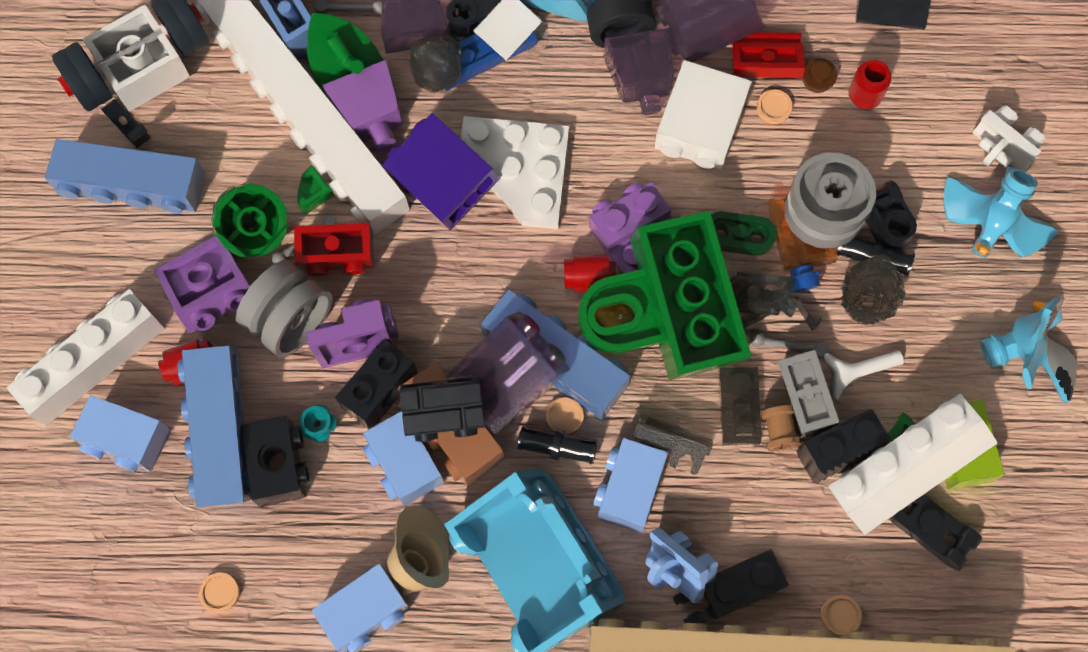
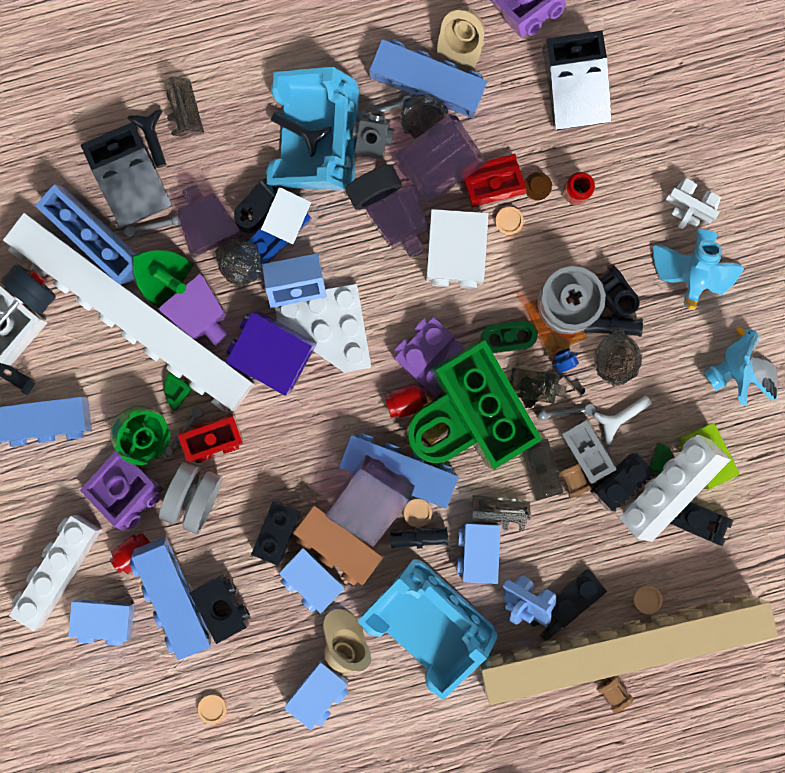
camera: 20 degrees left, 15 degrees up
(314, 414) = (235, 575): teal plate -> none
(357, 338) = (254, 496): medium lavender plate -> none
(442, 408) = (332, 543): black brick -> none
(494, 98) = (294, 280): none -> light blue brick

